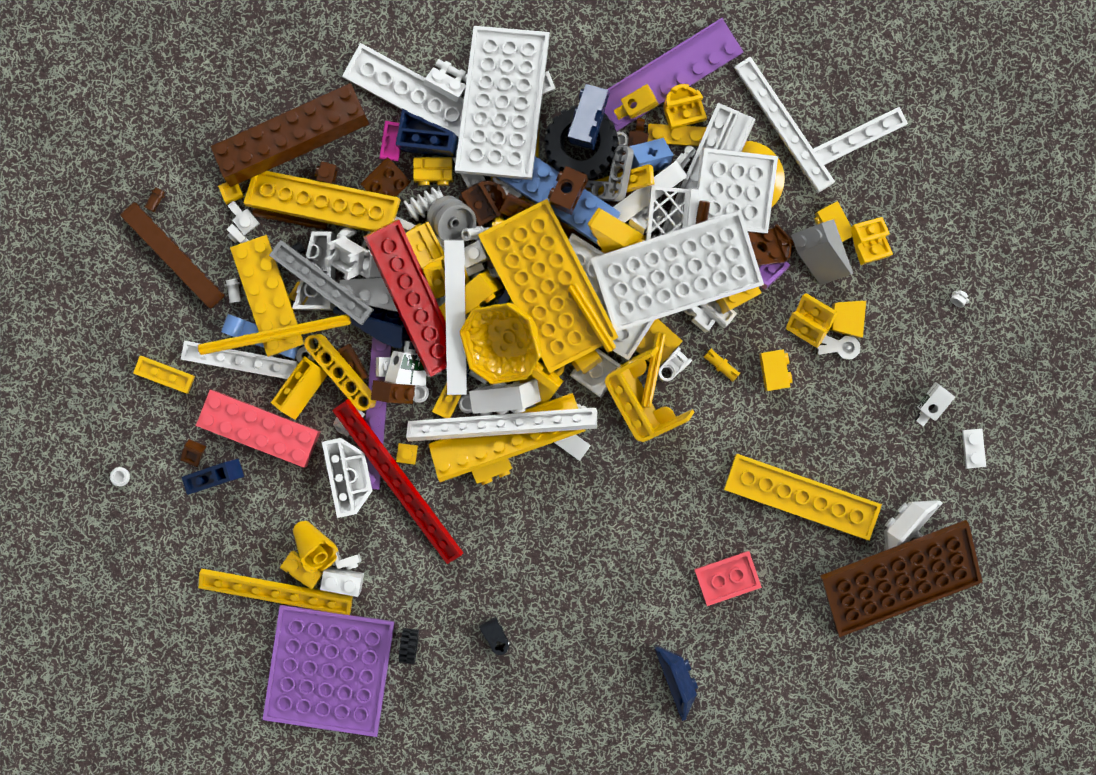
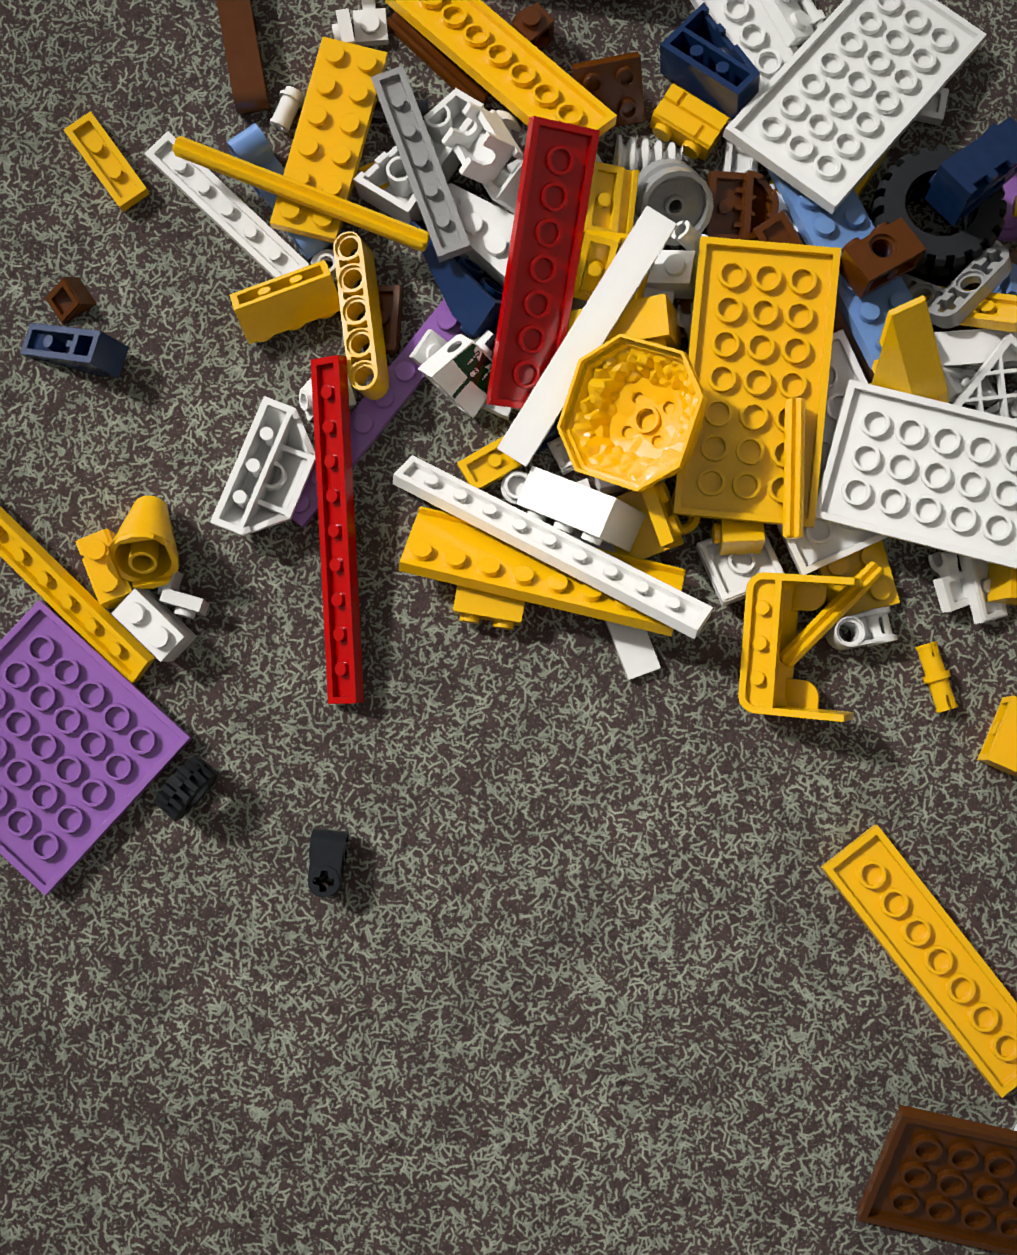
camera: 35 degrees right, 5 degrees down
(258, 428) = (186, 322): coral brick -> none
(388, 145) = (649, 44): dark pink plate -> none
(392, 392) = (418, 392): reddish brown brick -> none
(407, 453) = (379, 502): yellow plate -> none
(421, 393) = (456, 426): white plate -> none
(678, 679) = (563, 1119): dark blue wedge -> none
(727, 578) = (741, 1009): coral plate -> none

